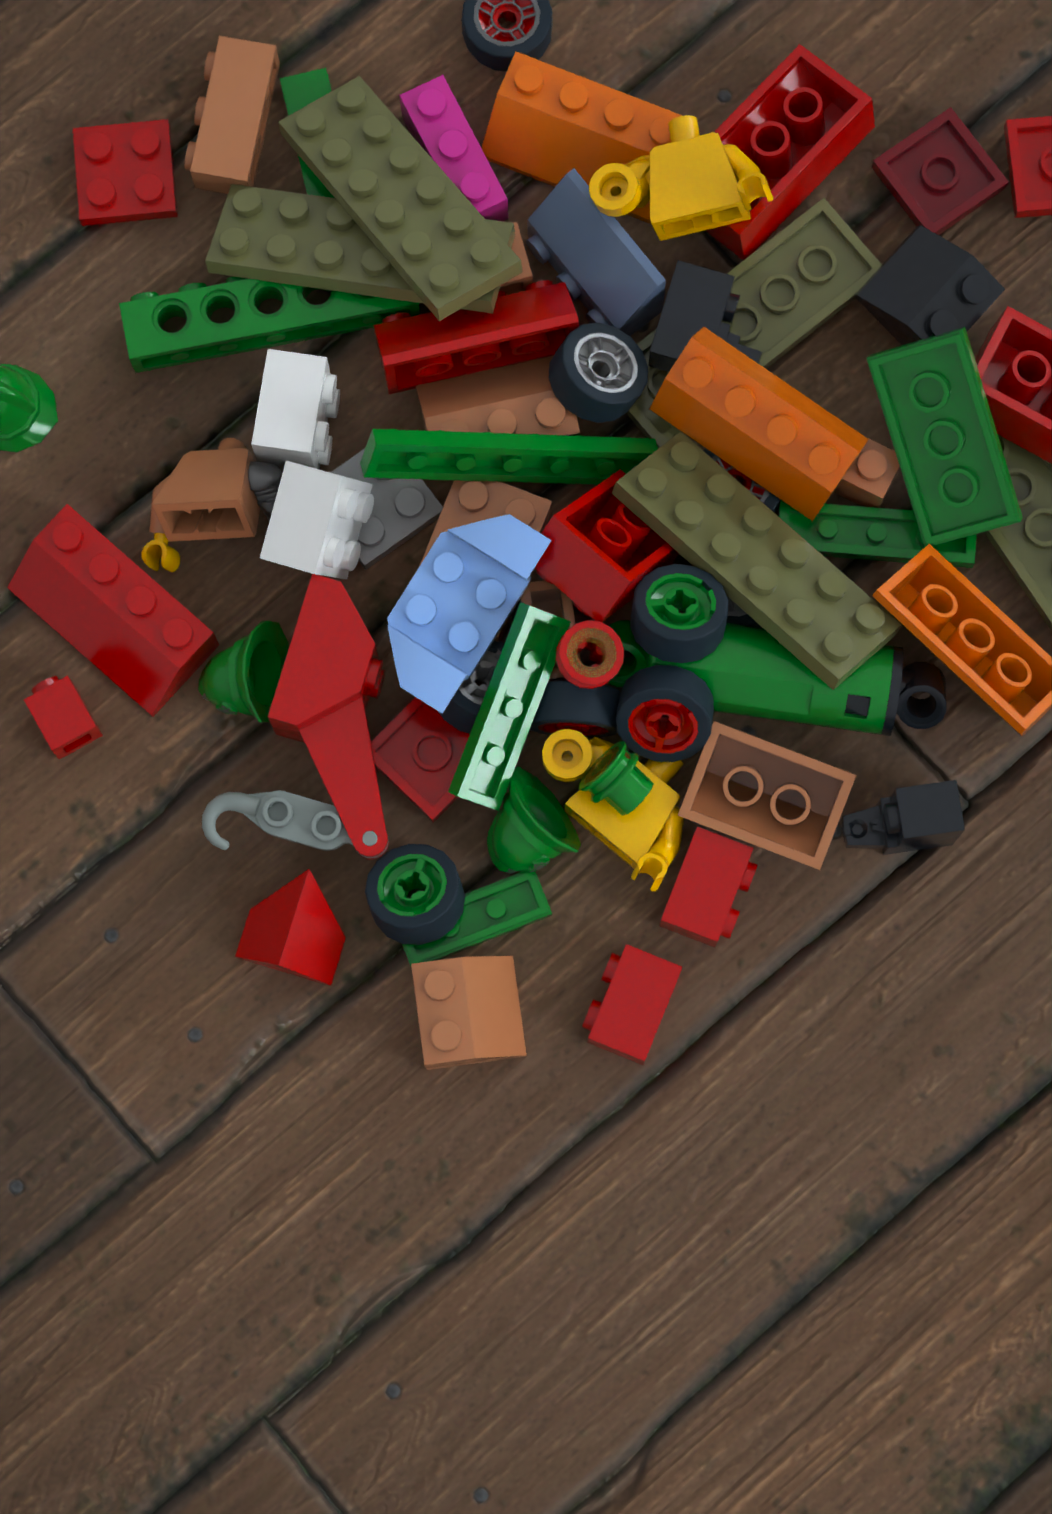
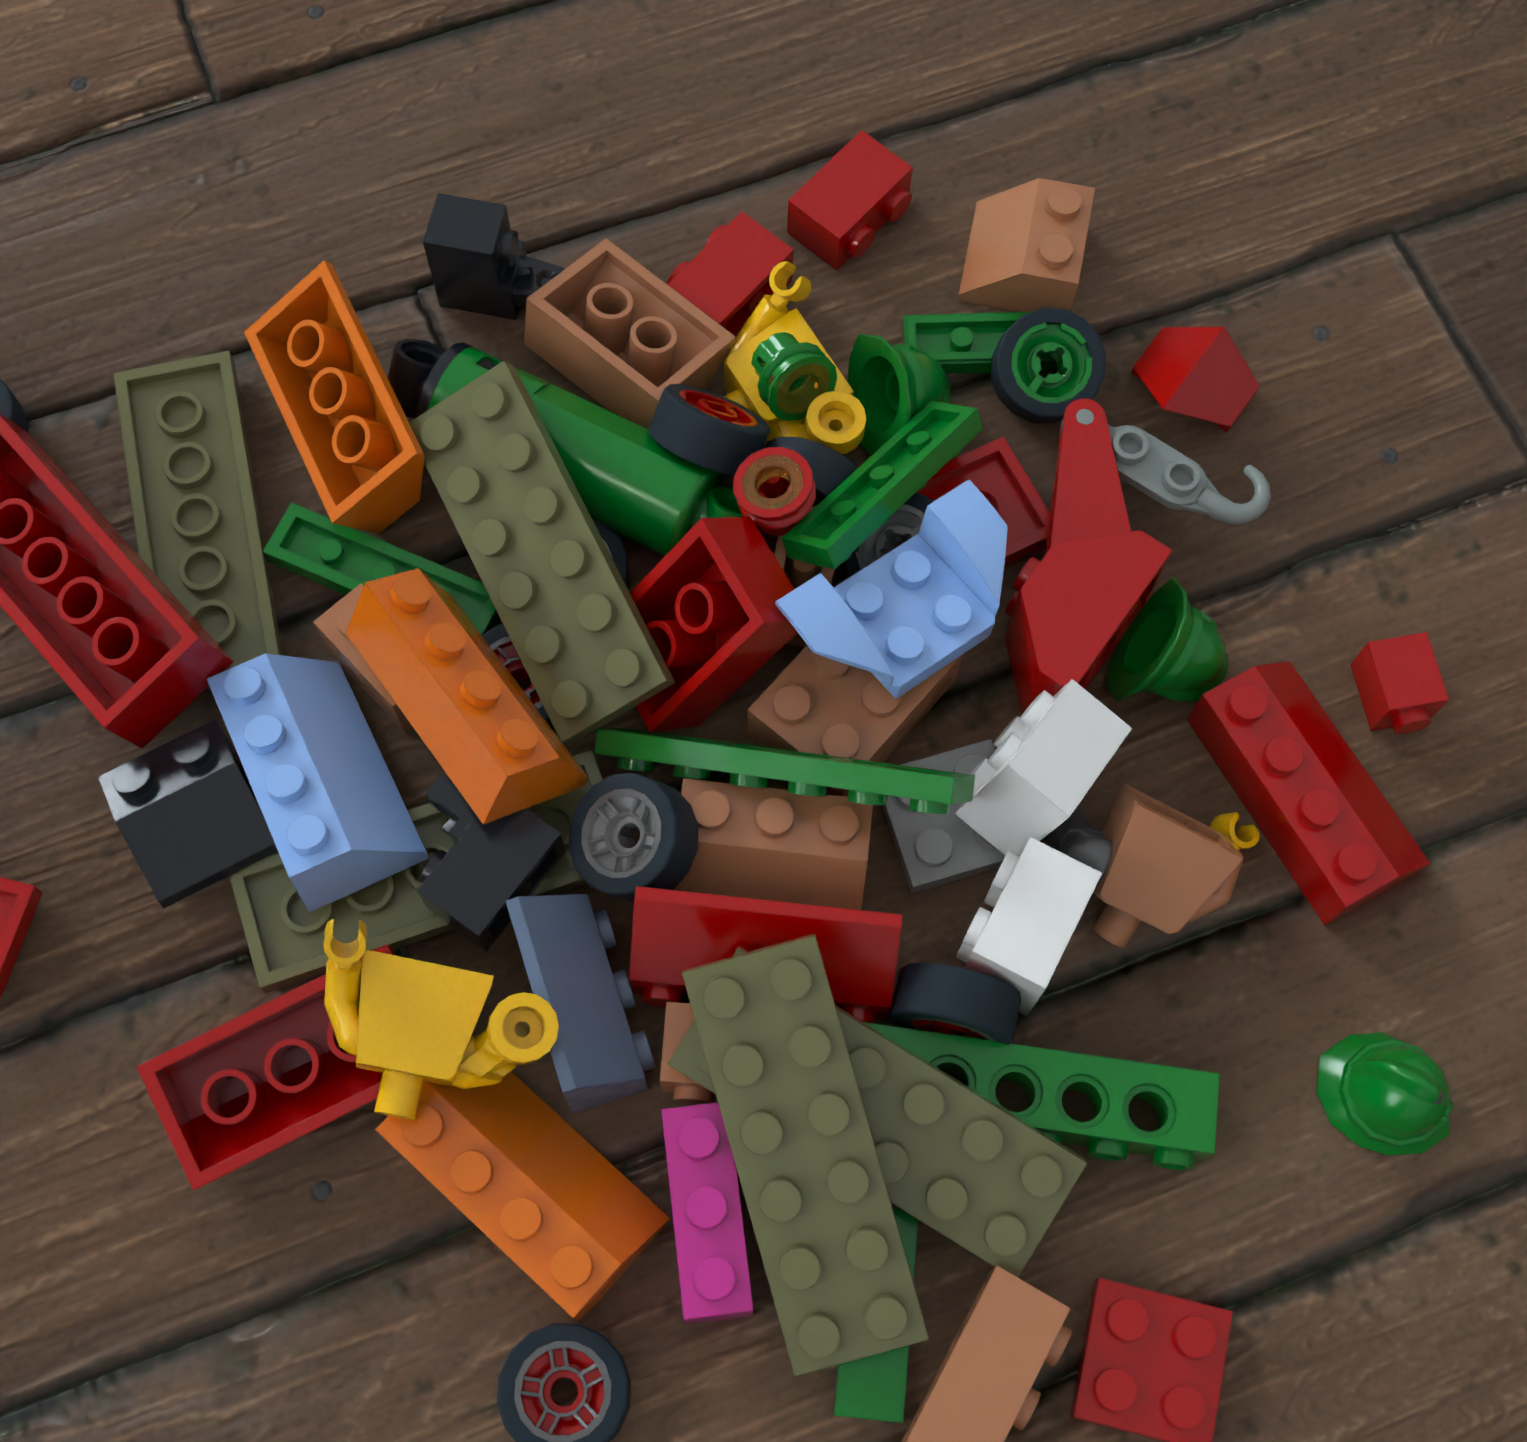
camera: 165 degrees left, 10 degrees down
(340, 336) = (955, 1002): none -> black wheel
(675, 635) = (625, 487): black wheel -> none
(824, 330) = (316, 775): none -> light blue slope
(939, 173) = (103, 974): dark red plate -> none
(944, 437) = (255, 606): green tile -> none

